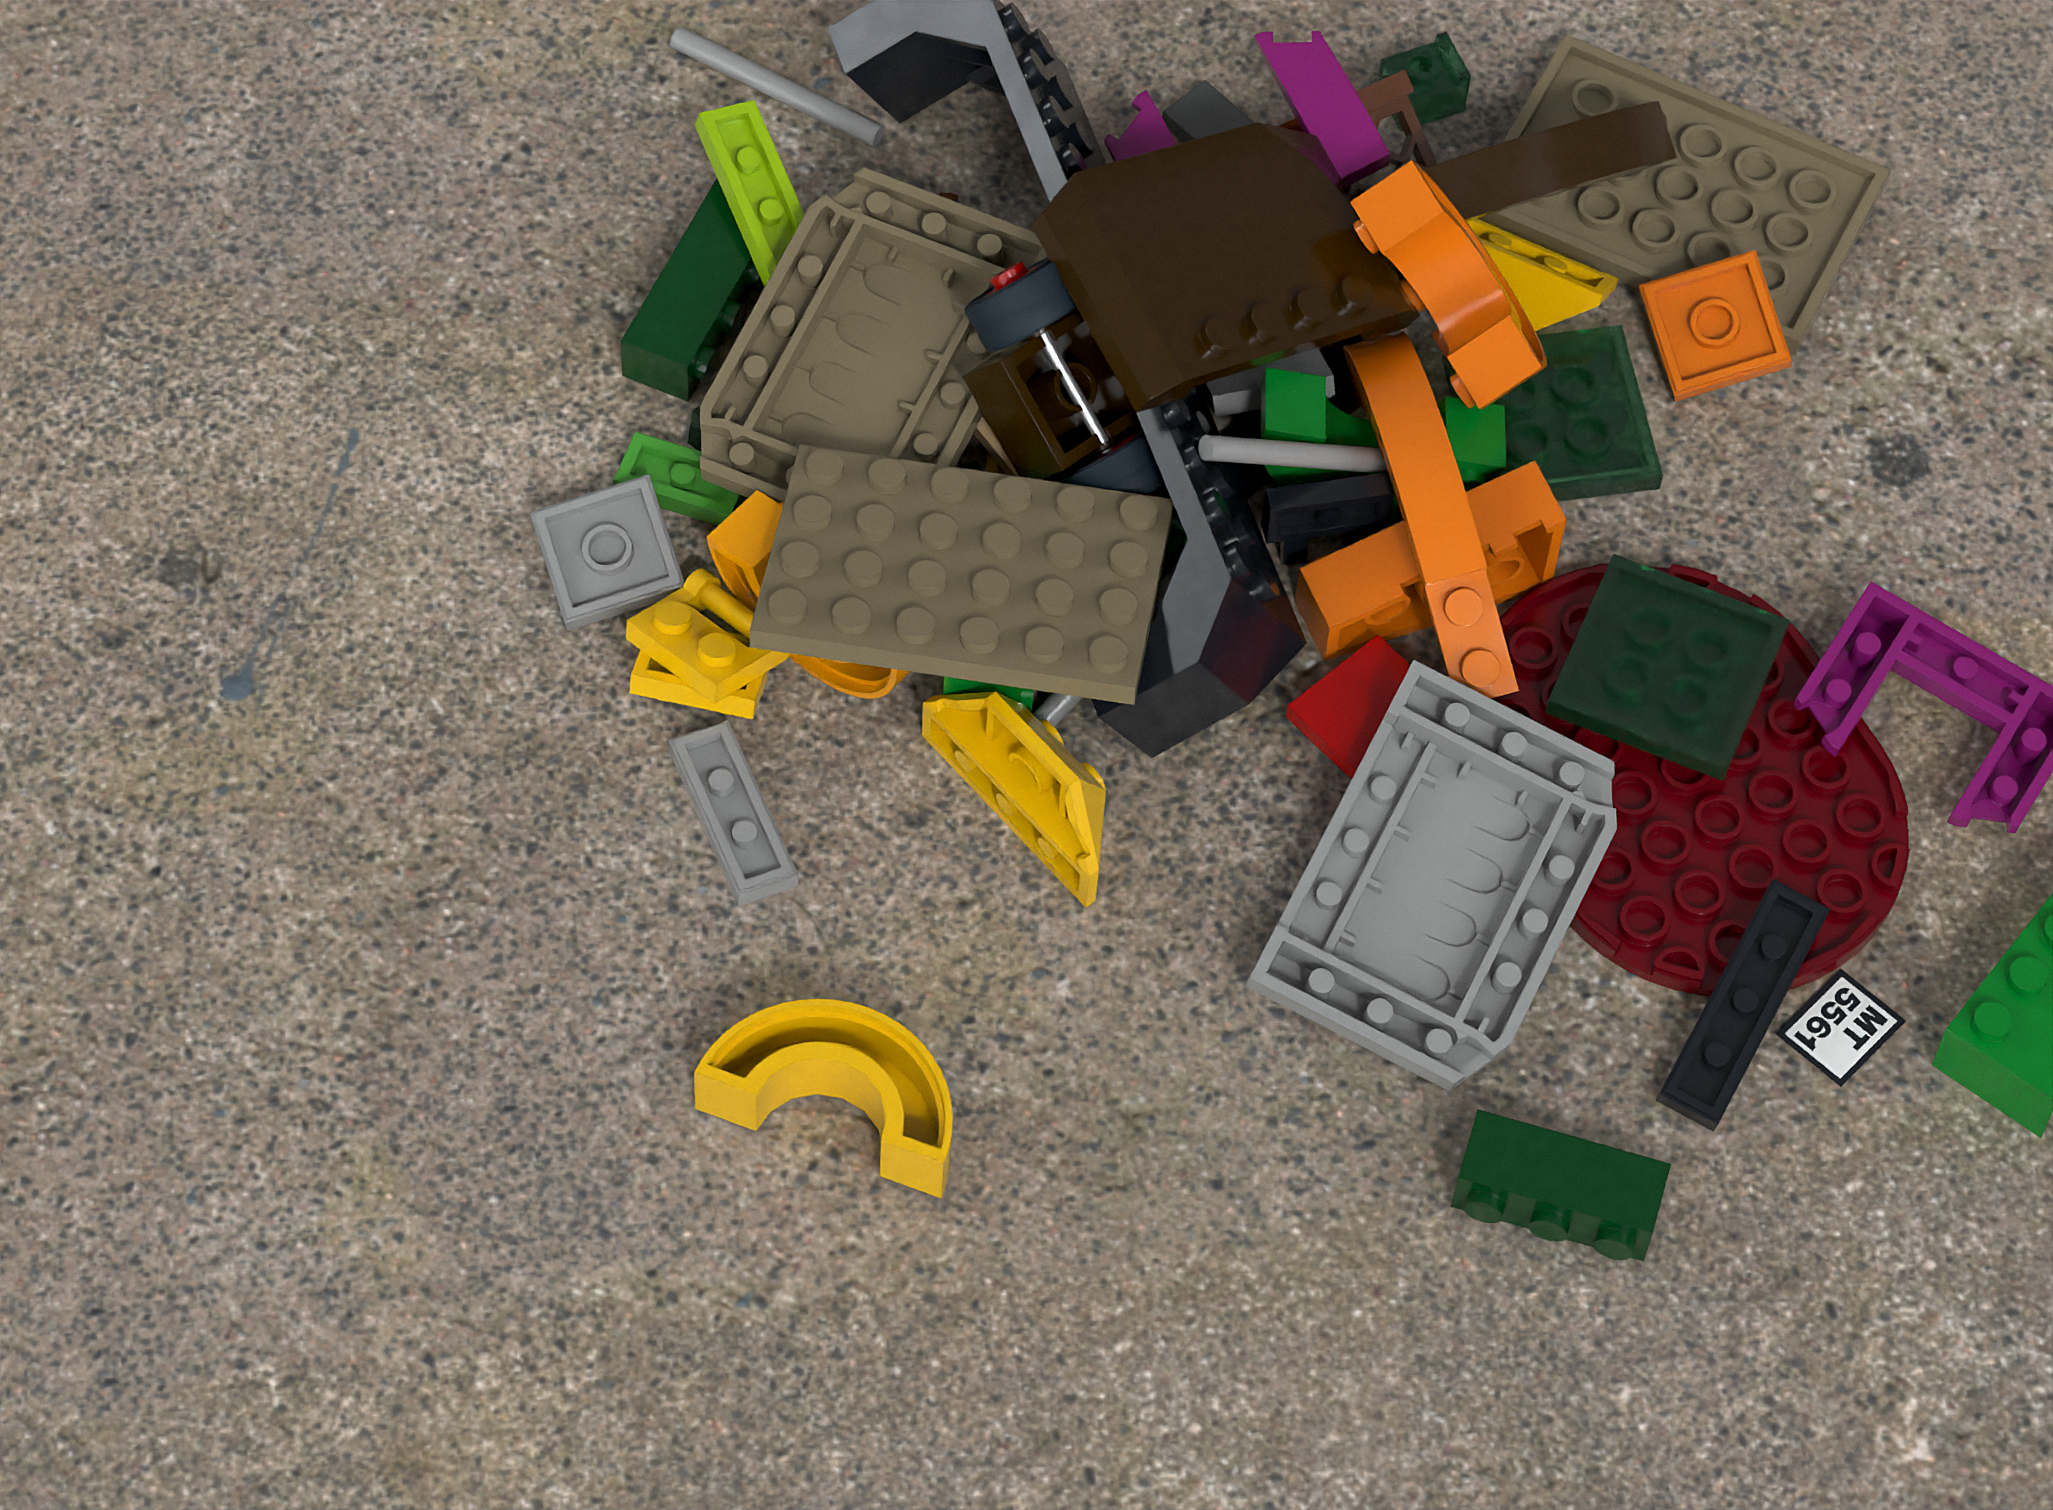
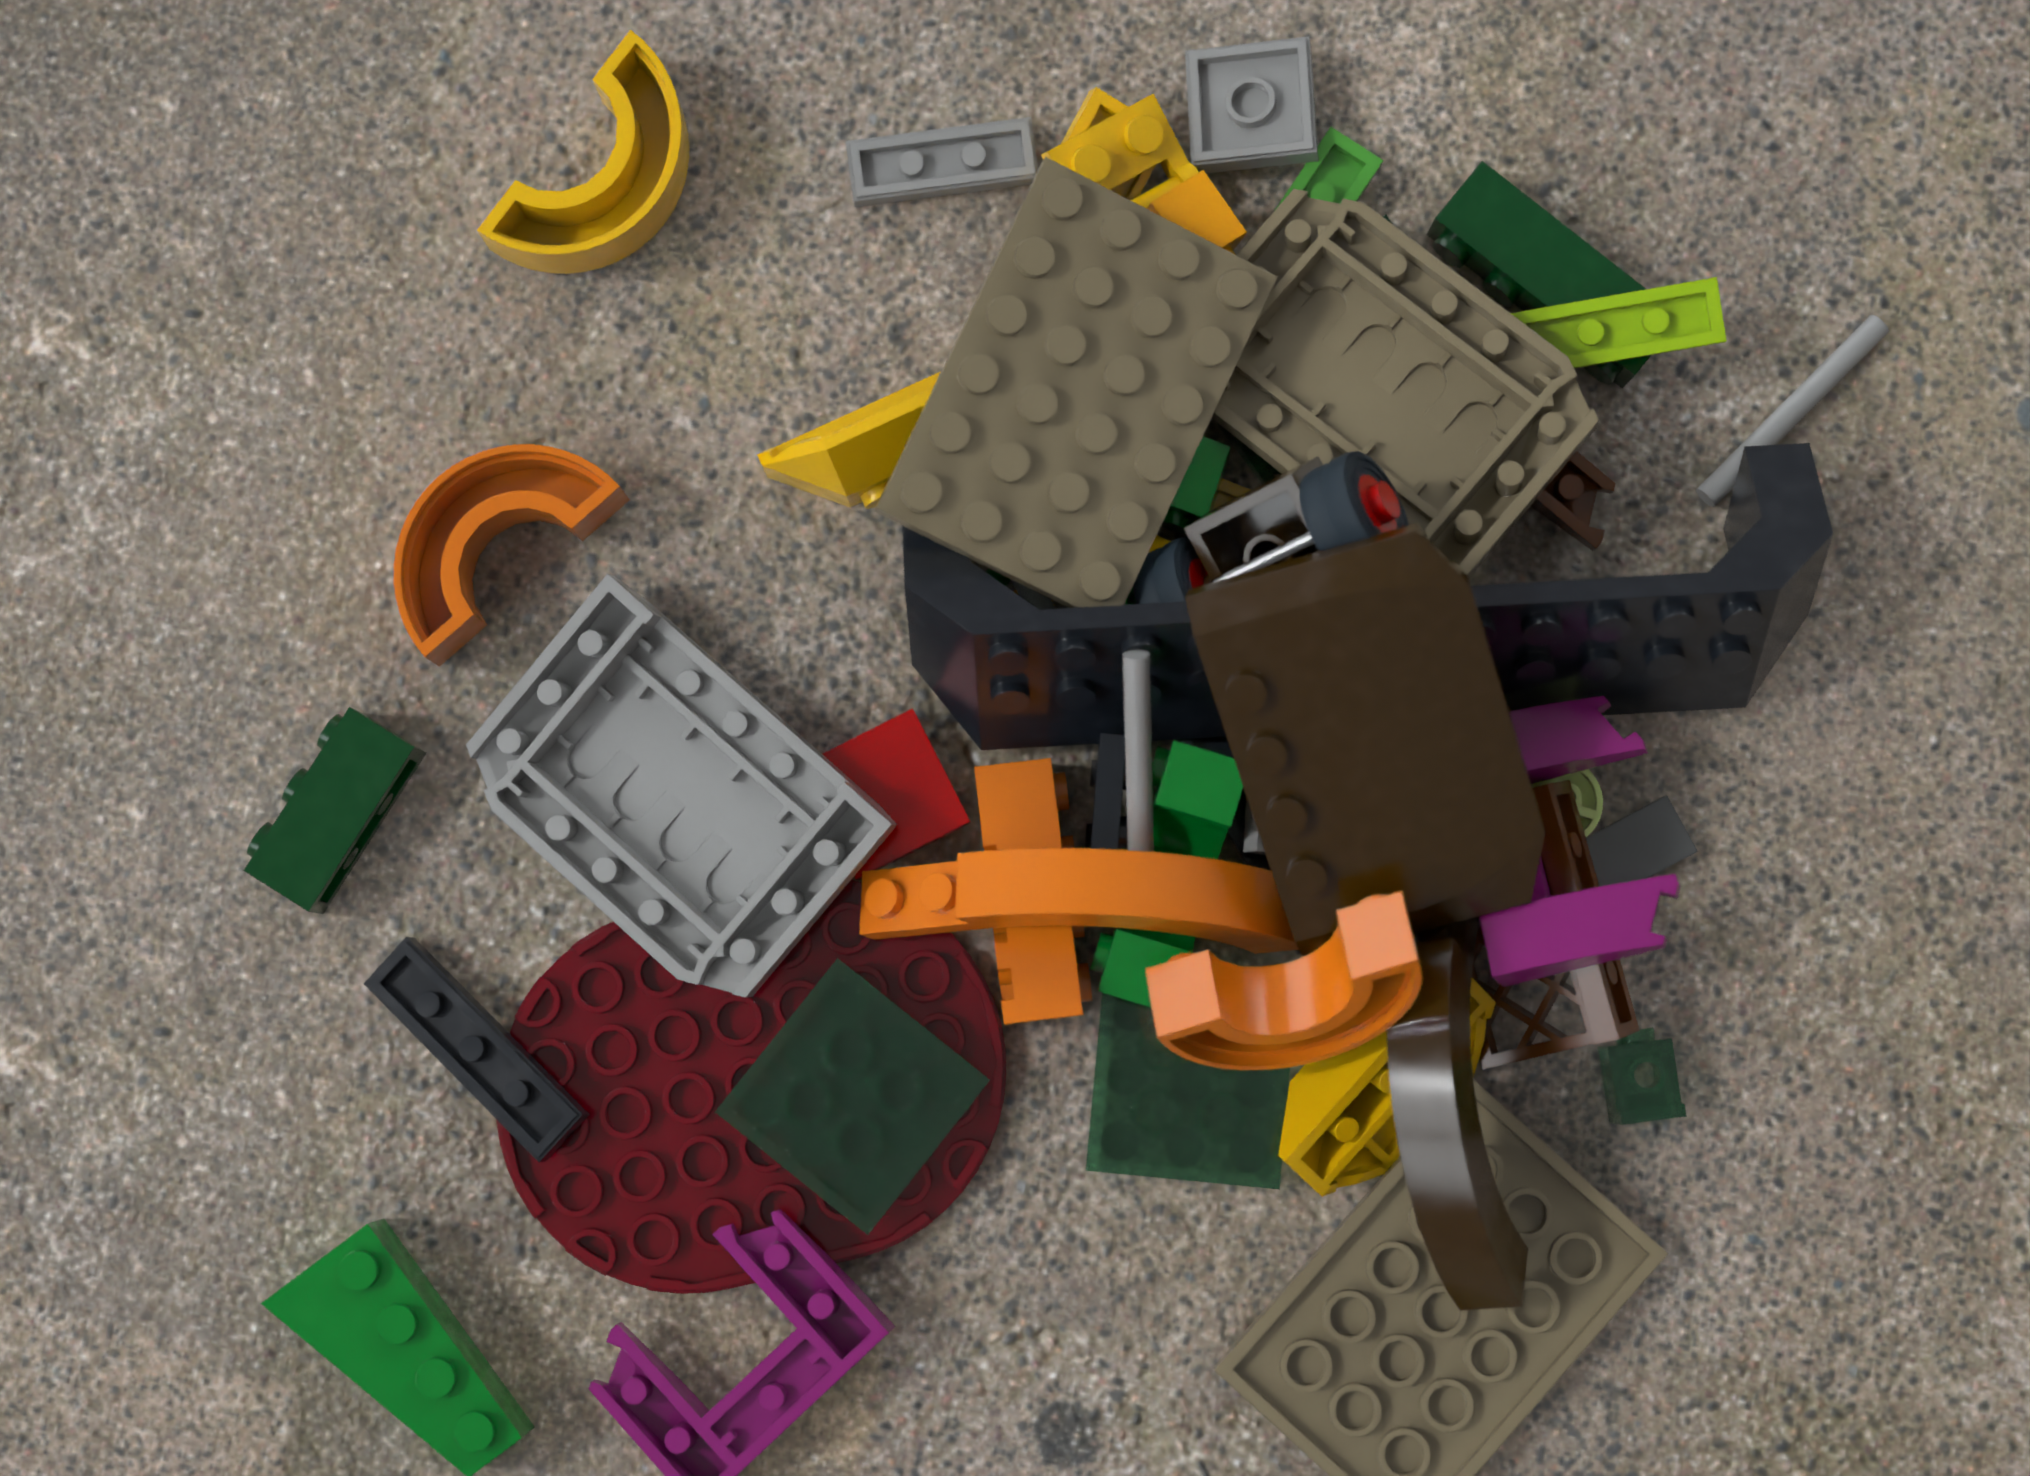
camera: 110 degrees right, 25 degrees up
(1233, 1131) = (464, 513): none -> orange brick
(1715, 325) = (1253, 1287): orange tile -> none
(1840, 1027) = (445, 1144): sticker -> none

